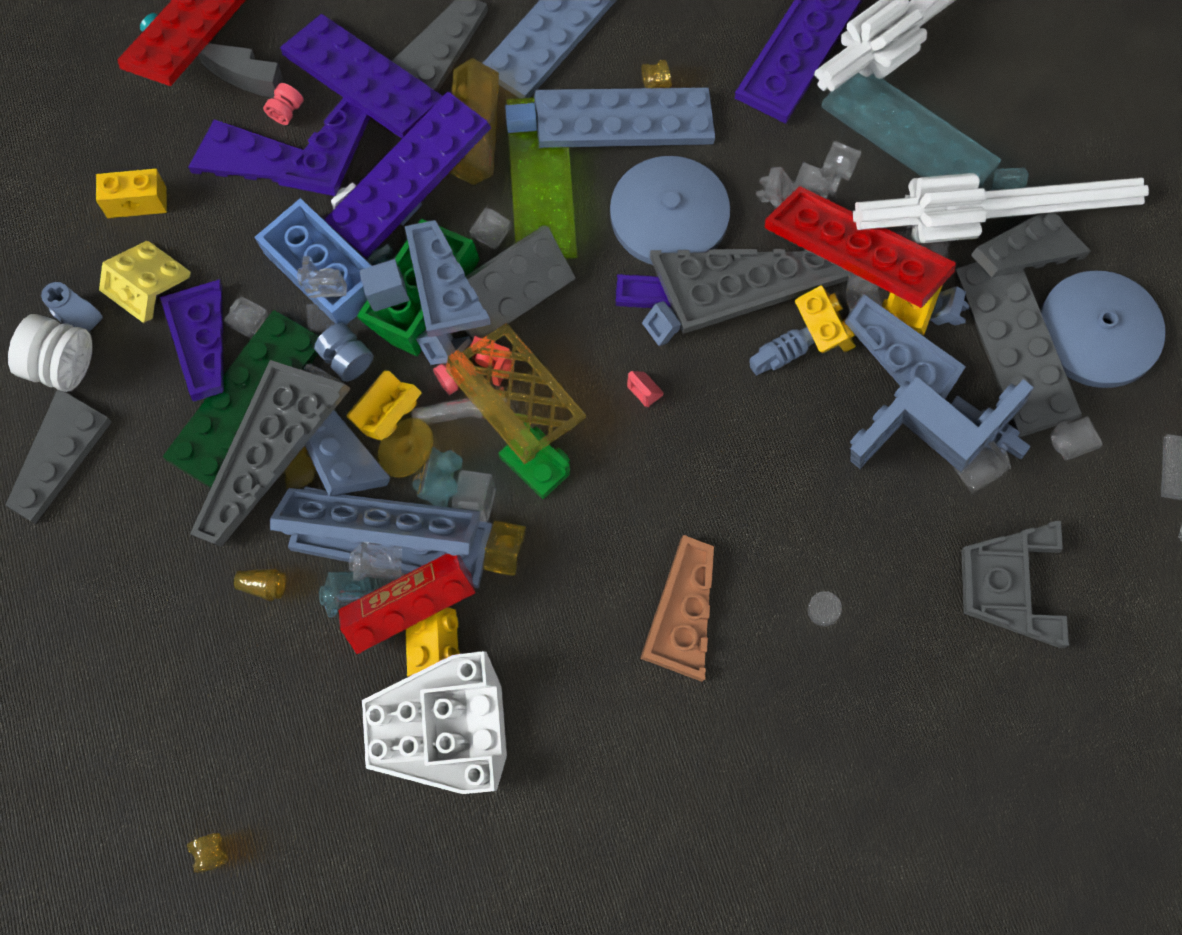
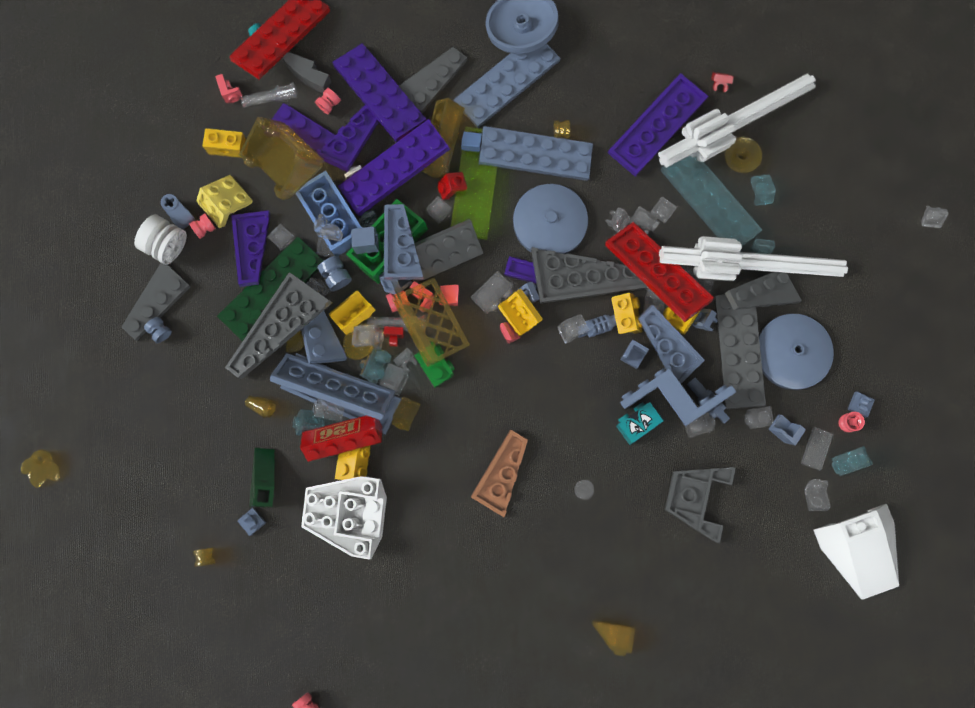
camera: 10 degrees right, 10 degrees up
(69, 498) = (157, 330): none -> sand blue wheel
(115, 323) = (201, 227): none -> coral wheel
(126, 122) = (229, 95): none -> coral bracket
(203, 108) = (276, 94): none -> clear pin
(223, 191) = (281, 156): none -> clear yellow windscreen
(279, 777) = (251, 521): none -> sand blue tile
(286, 701) = (262, 478): none -> dark green slope
(416, 433) = (367, 336): none -> clear bracket
(458, 425) = (393, 334): none -> red tile
(485, 458) = (405, 357): none -> clear tile
(501, 185) = (451, 184): none -> red bracket
(540, 347) = (451, 294): none -> coral slope
(603, 334) = (492, 292): none -> clear bracket
(656, 351) = (520, 312): none -> yellow bracket
(743, 360) = (572, 328): none -> clear bracket
(852, 379) = (634, 354): none -> sand blue panel
(887, 483) = (639, 423): none -> teal brick
(938, 836) = (616, 636): none -> clear yellow slope
(944, 51) = (750, 151): none -> clear yellow dish
(987, 103) = (763, 189): none -> clear light blue bracket
(1125, 450) = (786, 431): none -> sand blue panel

